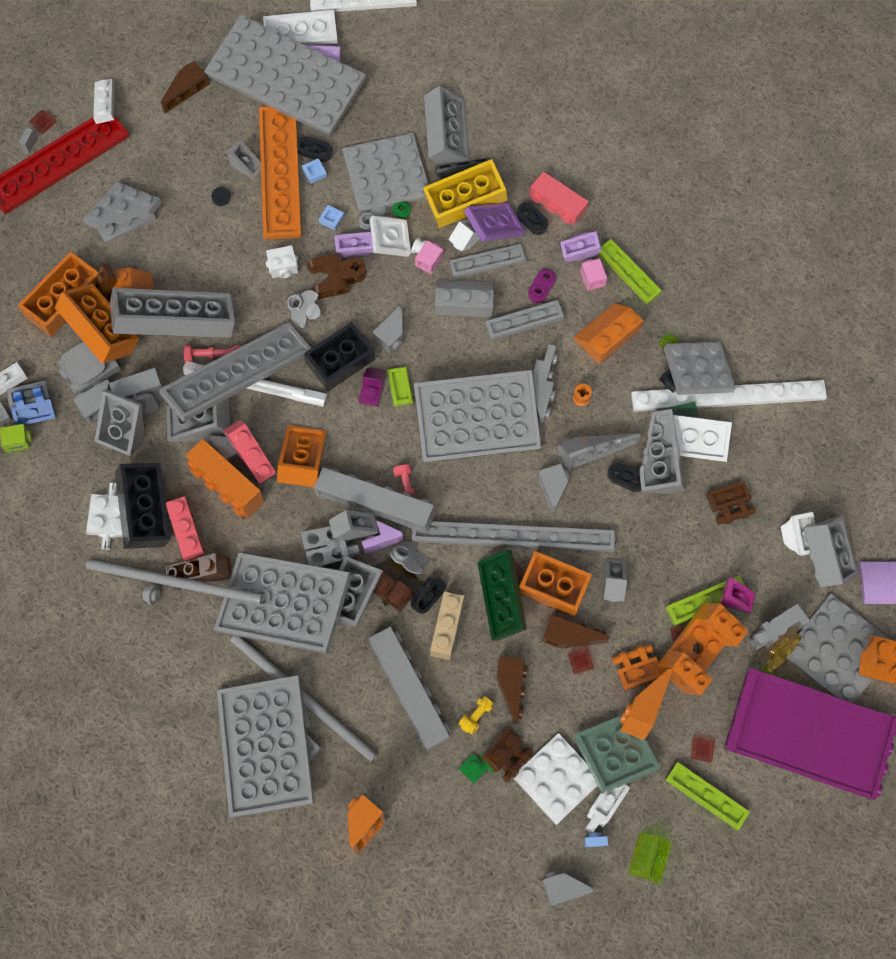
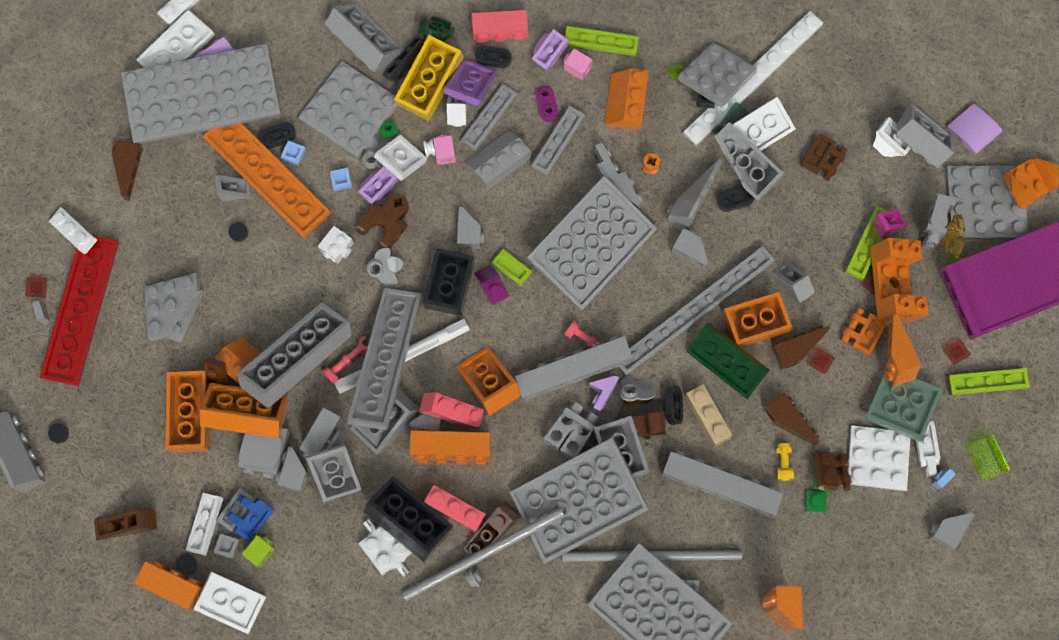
camera: 35 degrees left, 5 degrees up
(353, 525) = (579, 401): light grey slope -> none
(506, 164) = (435, 27): none -> dark green plate

